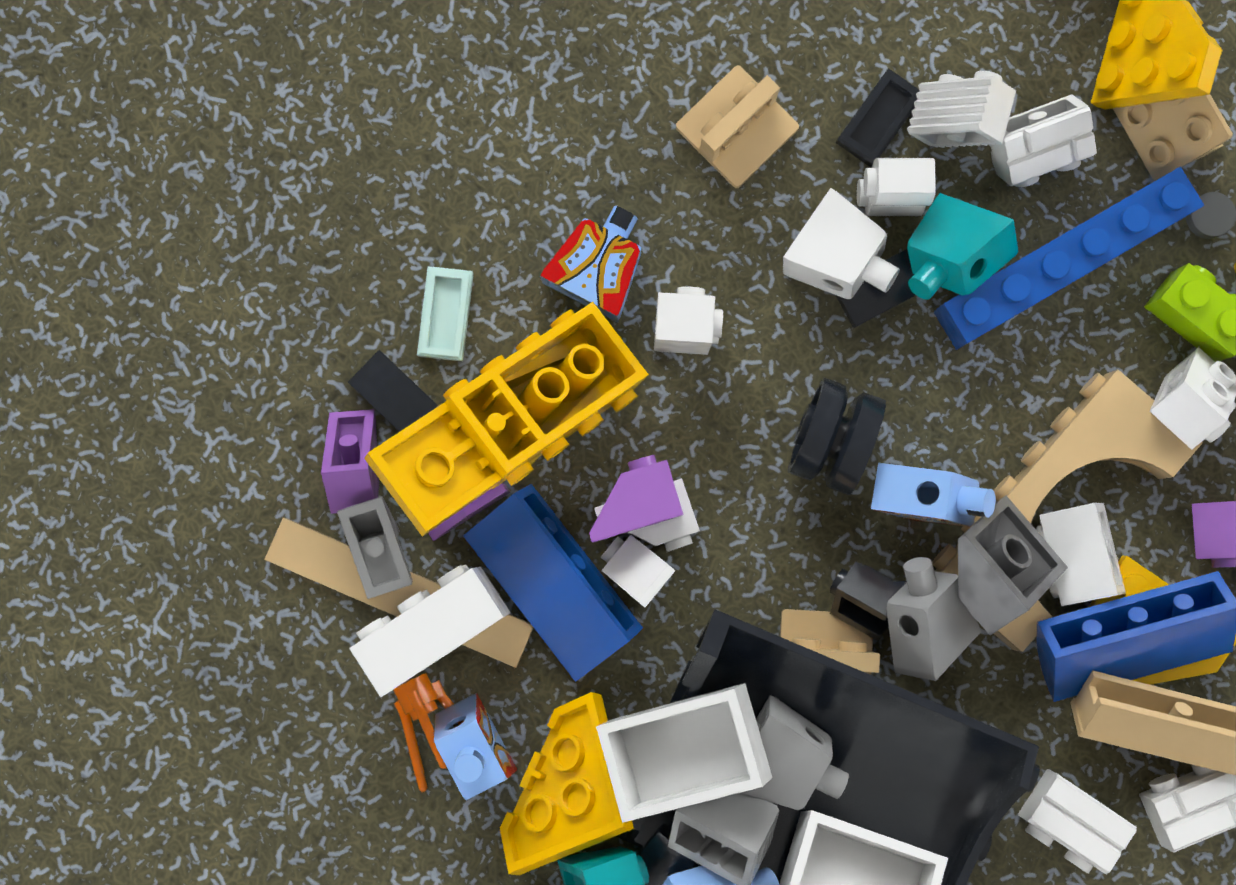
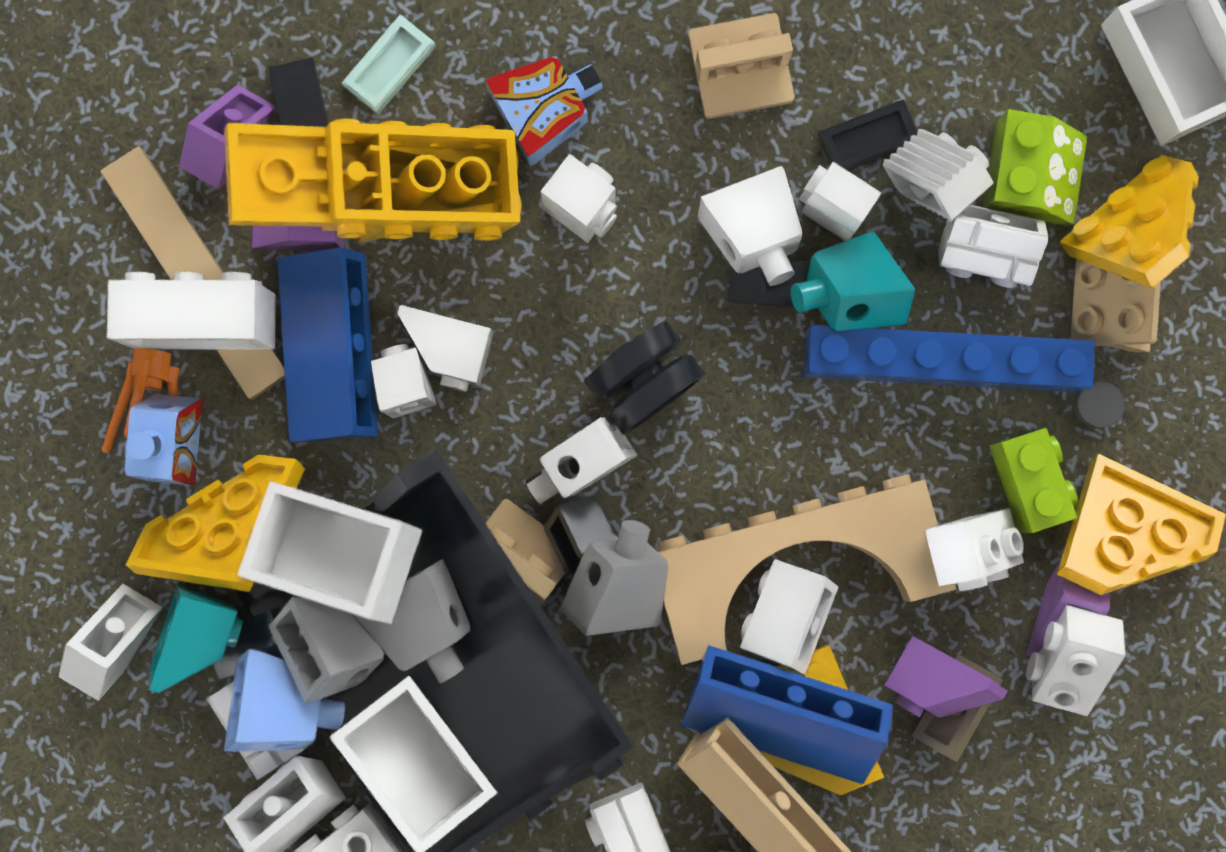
camera: 30 degrees right, 0 degrees up
(375, 547) = (195, 217): light grey slope -> none
(638, 500) = (437, 319): medium lavender slope -> none
(833, 519) = (597, 449): none -> white torso
(930, 495) = (700, 489): light blue torso -> none
(1004, 567) = (710, 576): flat silver slope -> none
(1033, 54) = (1035, 167): none -> lime slope

